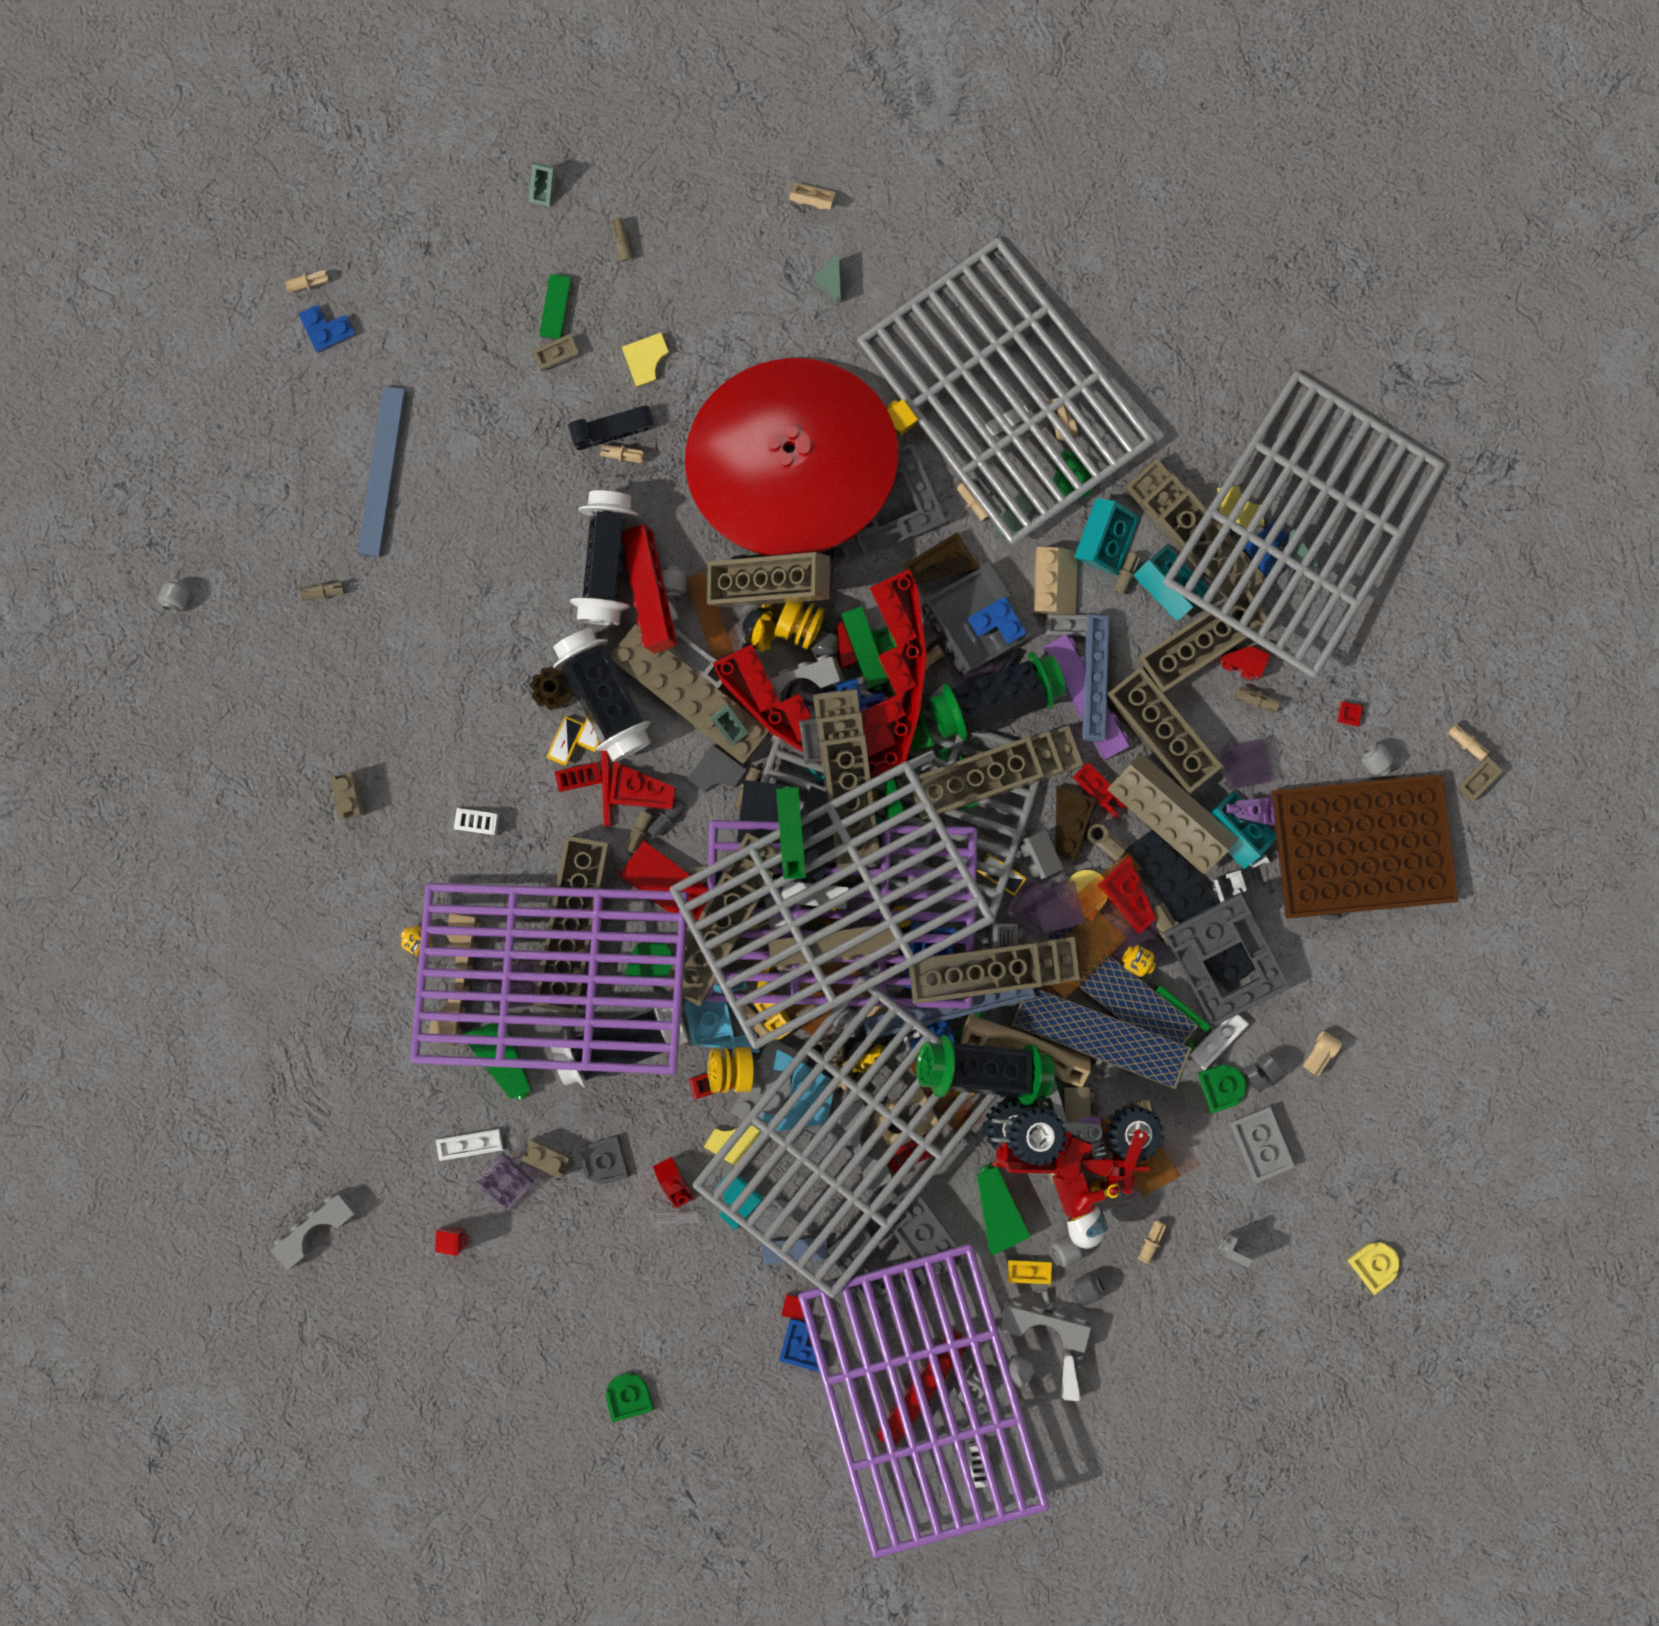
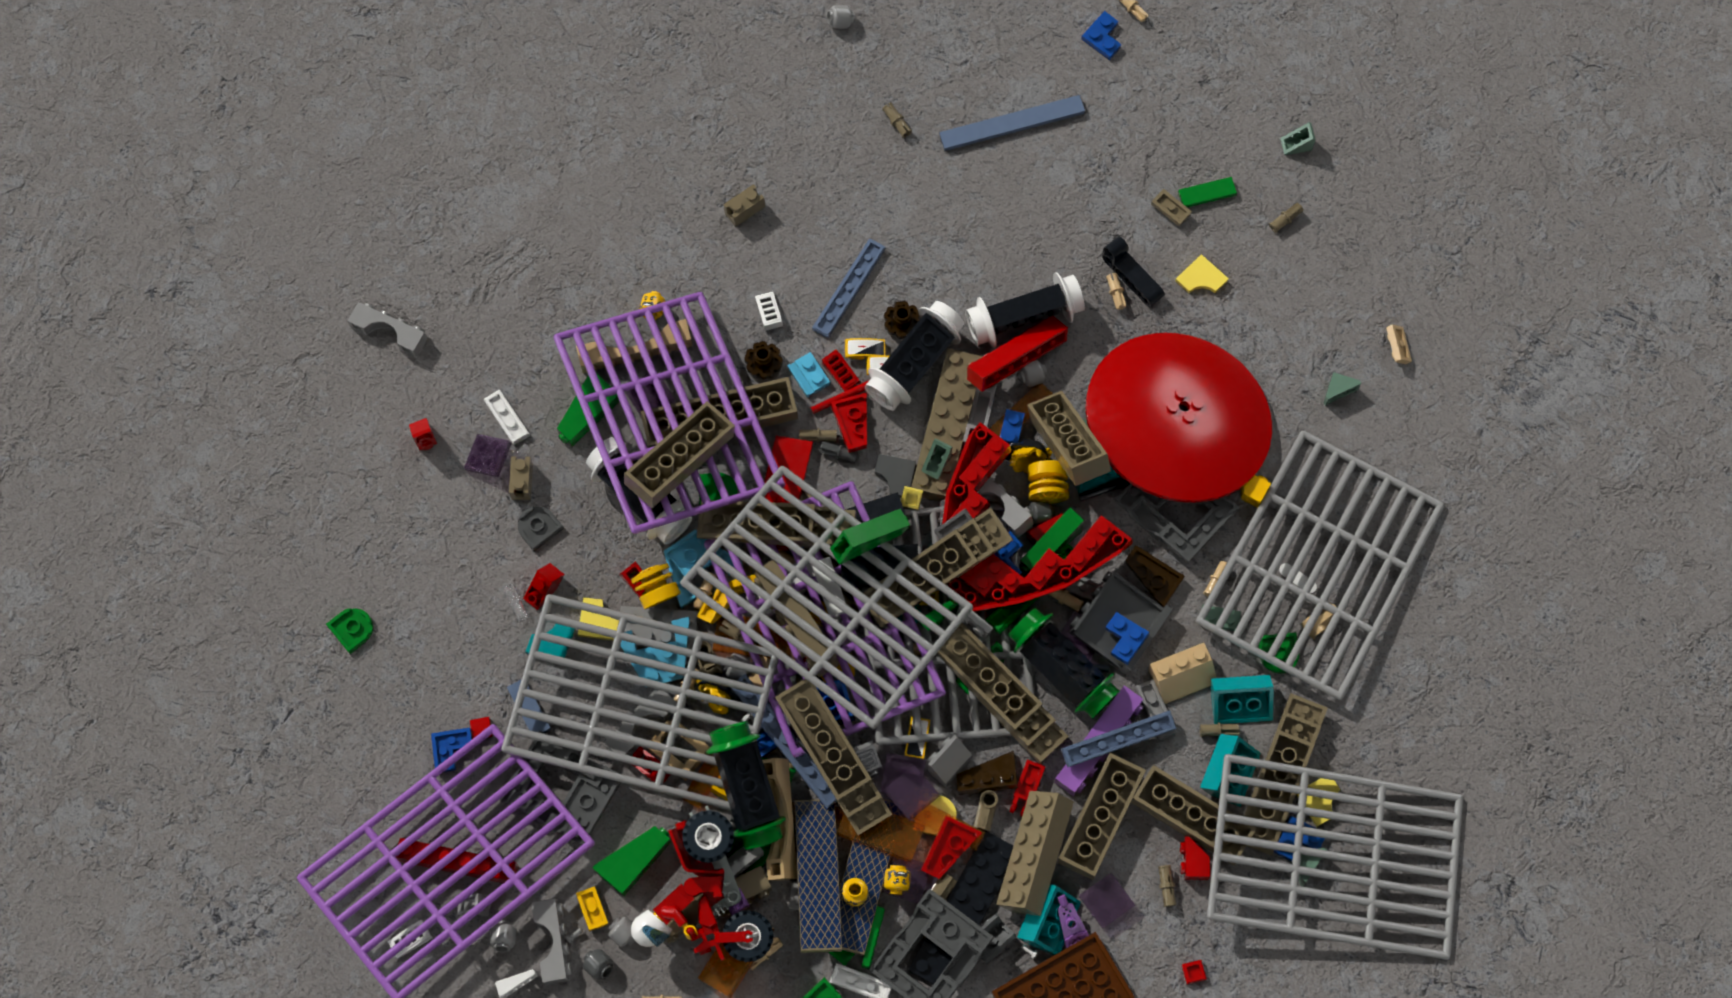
camera: 65 degrees right, 15 degrees down
(489, 727) = (848, 288): none -> sand blue tile
(519, 848) = (763, 360): none -> dark brown plant
(566, 811) = (808, 374): none -> medium azure plate
(611, 989) = (679, 454): none -> dark tan brick
(723, 632) = (1012, 426): none -> blue plate
(753, 767) = (911, 497): none -> light yellow tile
(1144, 1011) = (851, 889): none -> yellow head

